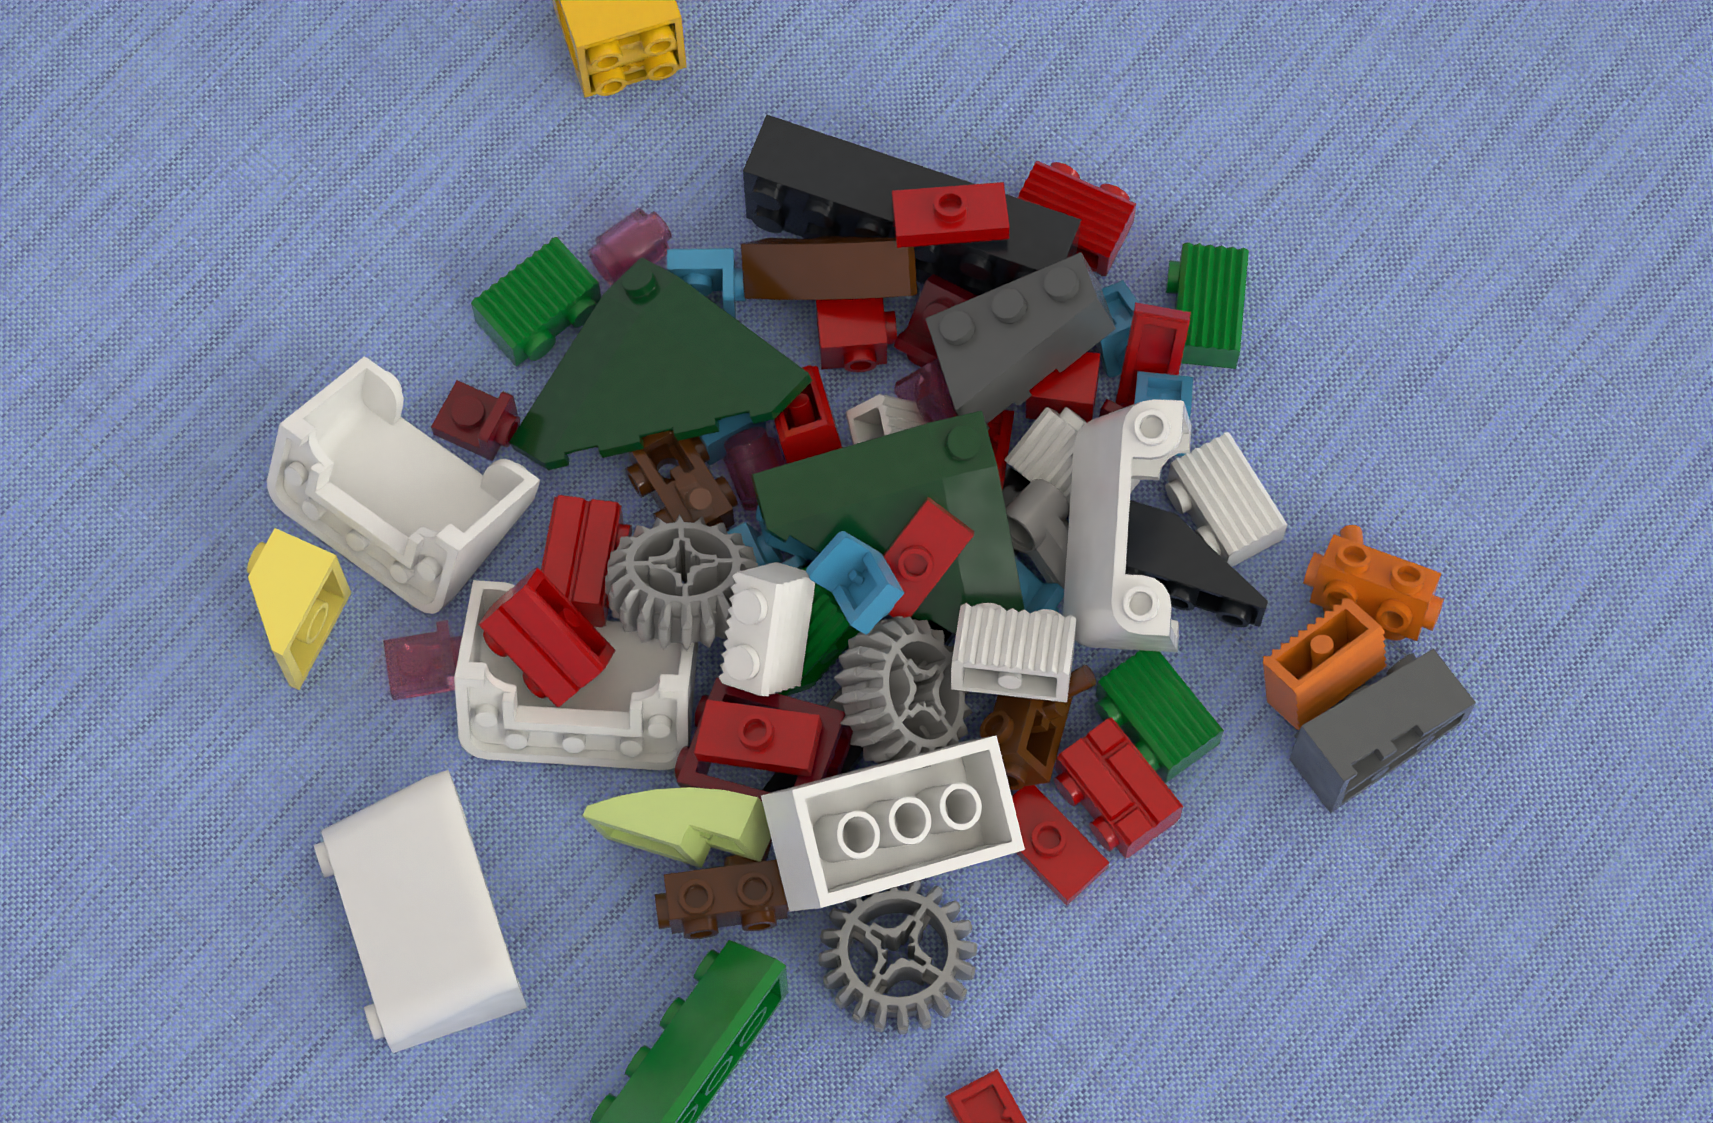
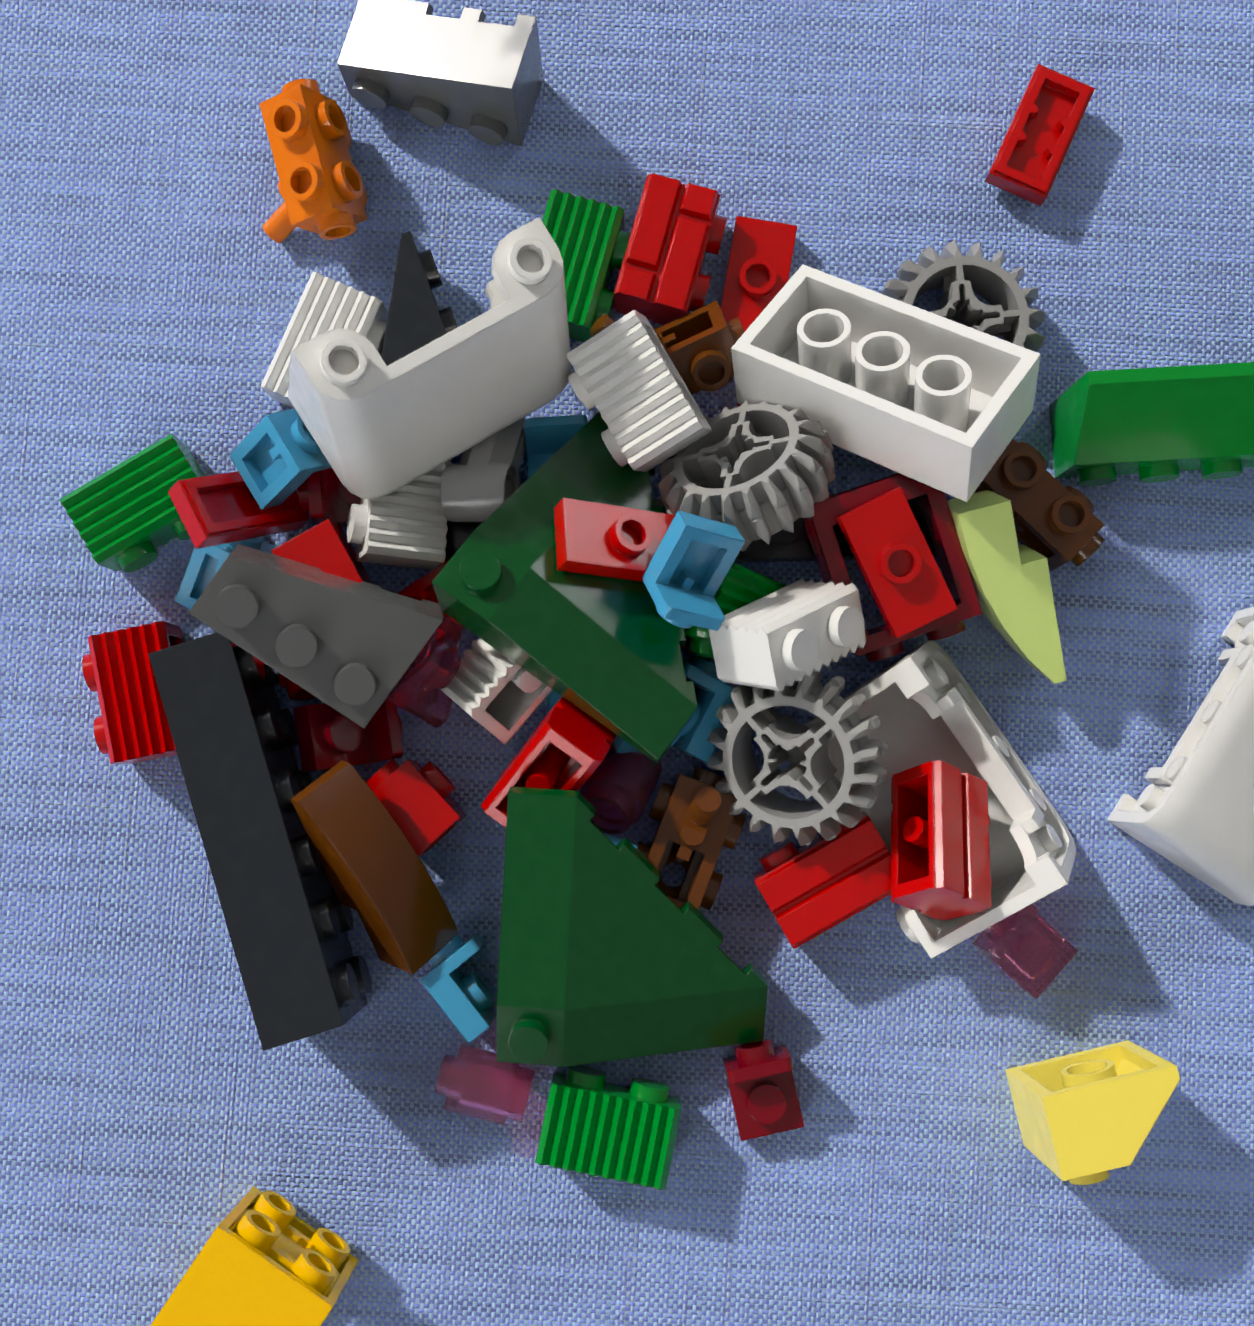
camera: 130 degrees left, 15 degrees up
(390, 491) = (891, 1113): white windscreen -> none
(950, 214) = (240, 777): red plate -> none
(1324, 663) = (420, 150): orange brick -> none

